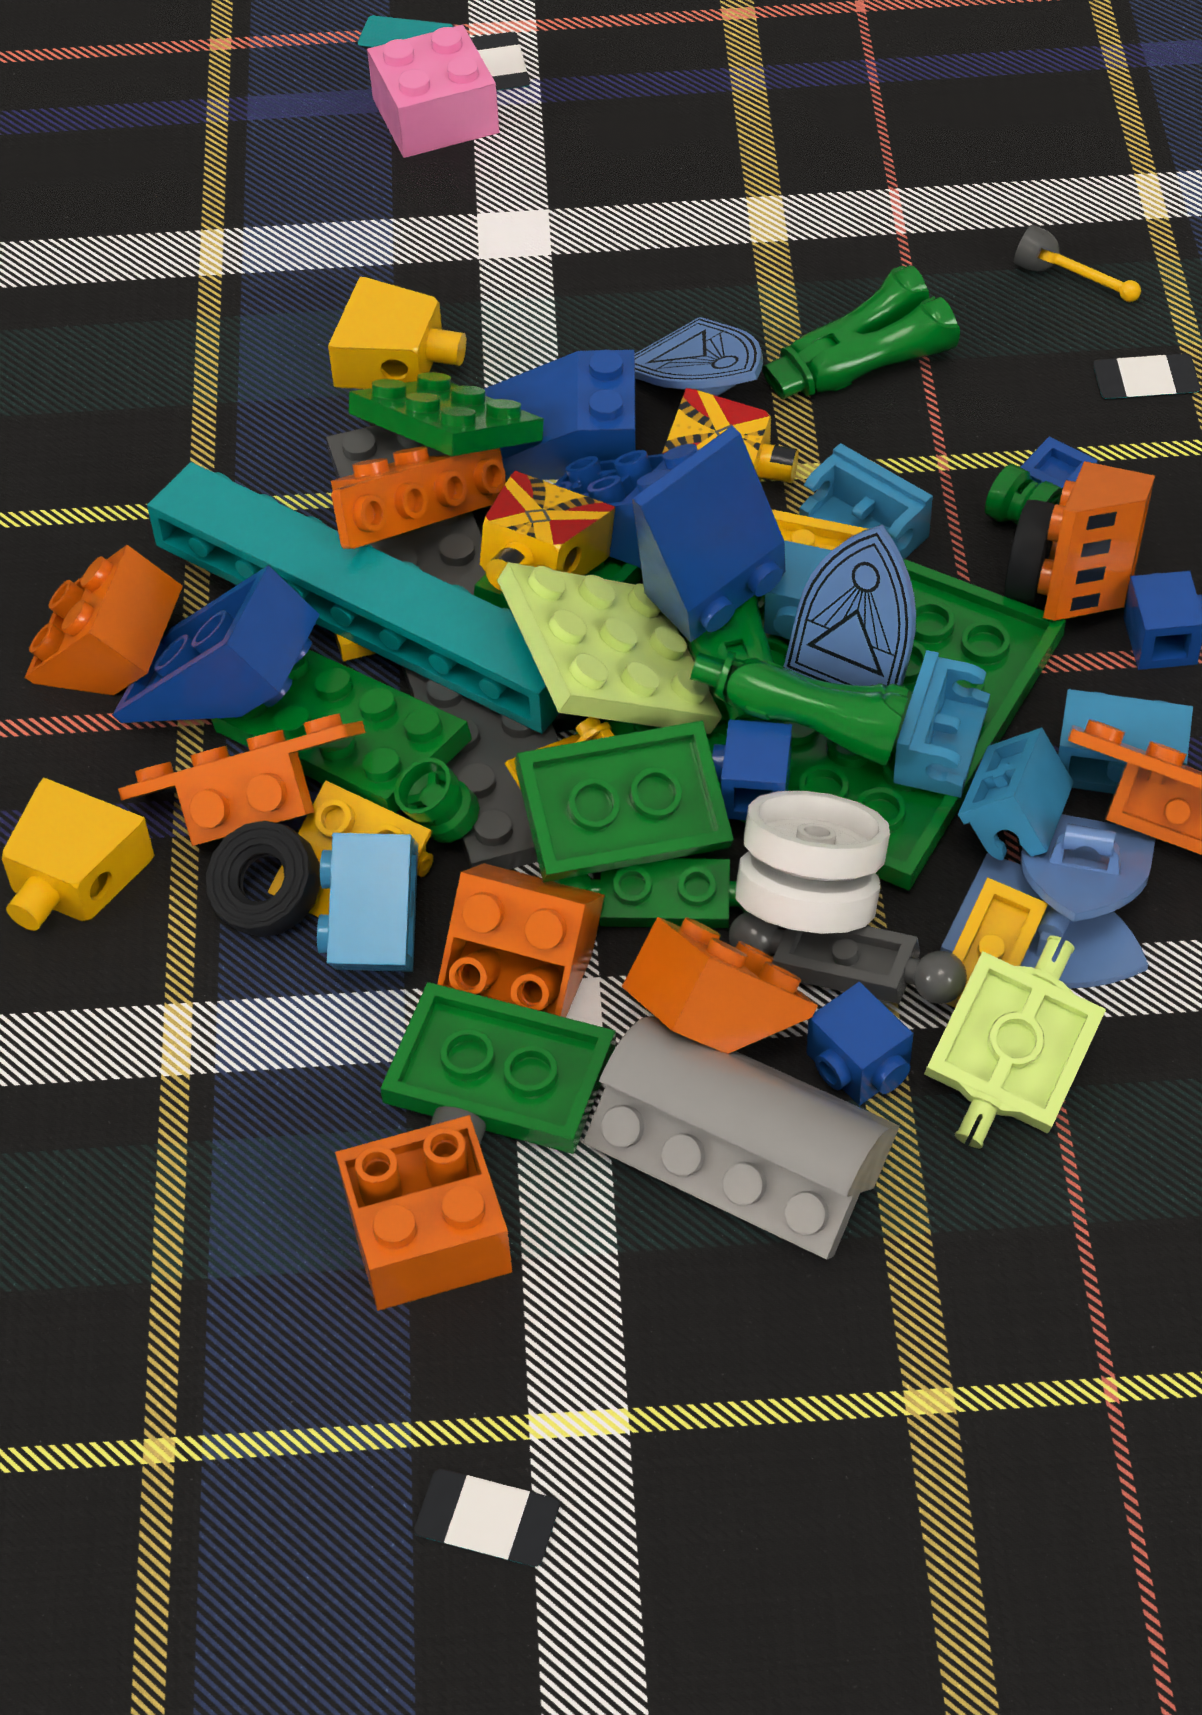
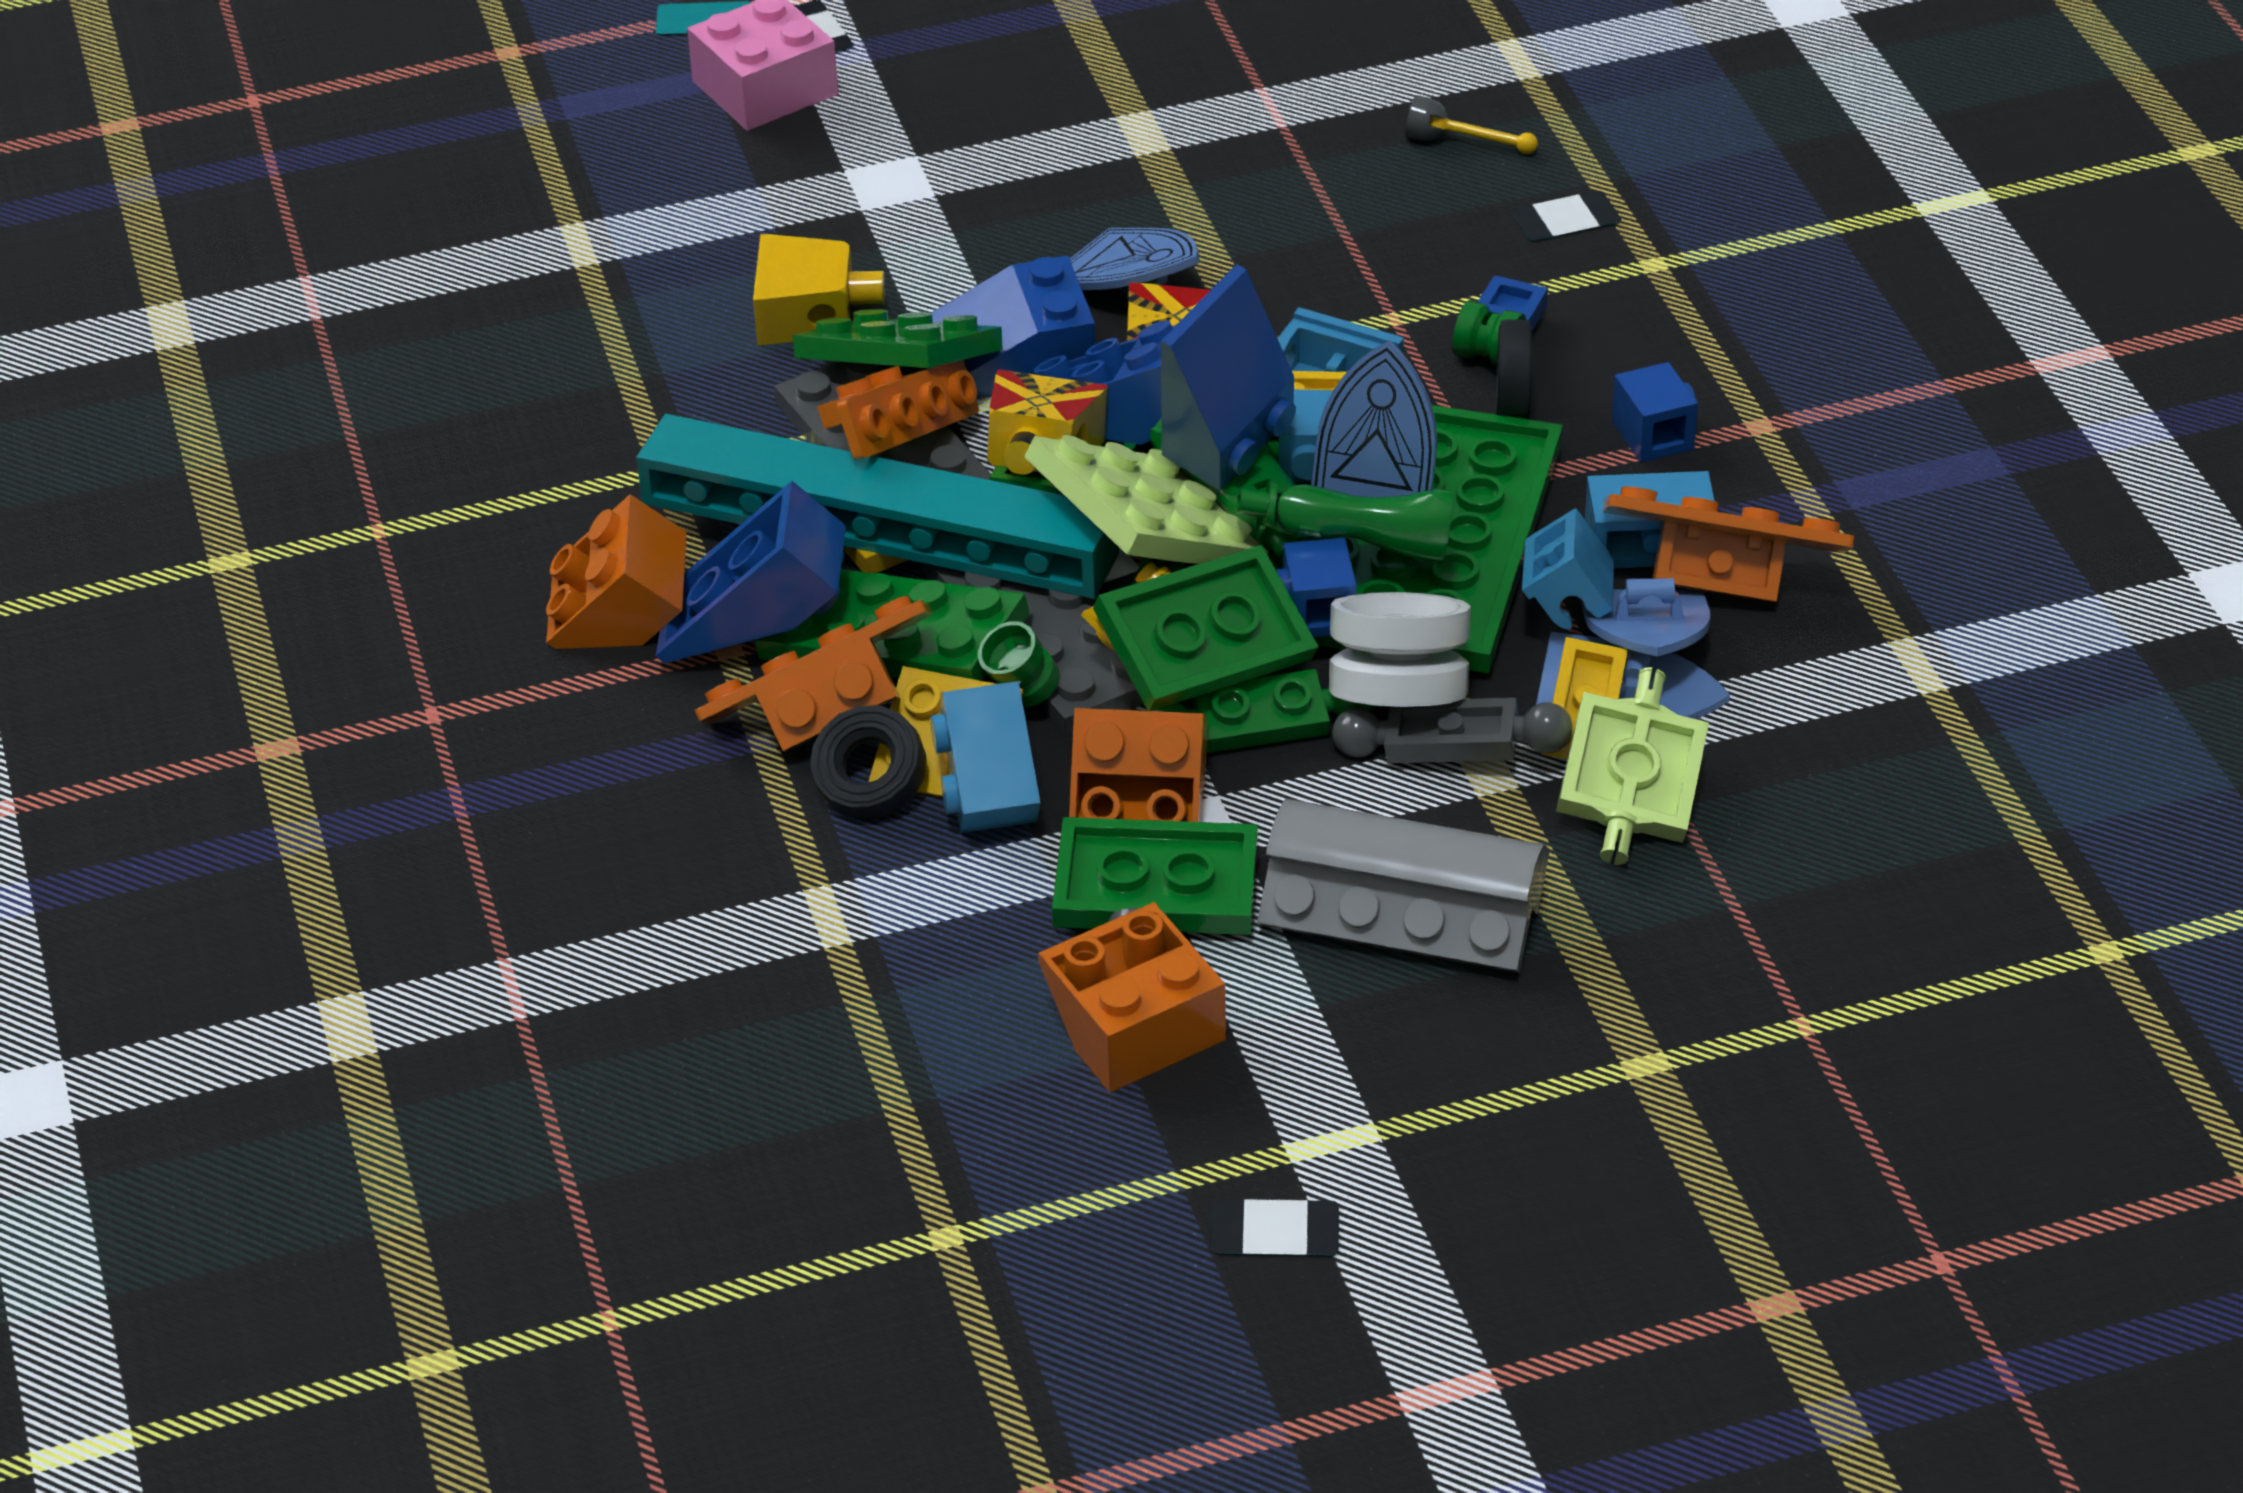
camera: 15 degrees left, 10 degrees down
(71, 855) = (668, 775): yellow torso -> none
(714, 989) = (1341, 762): orange slope -> none
(859, 1045) = (1489, 793): blue brick -> none
(884, 330) = (1301, 208): green piece -> none
(941, 727) = (1481, 526): dark azure hinge -> none
(1094, 541) = (1578, 344): orange slope -> none

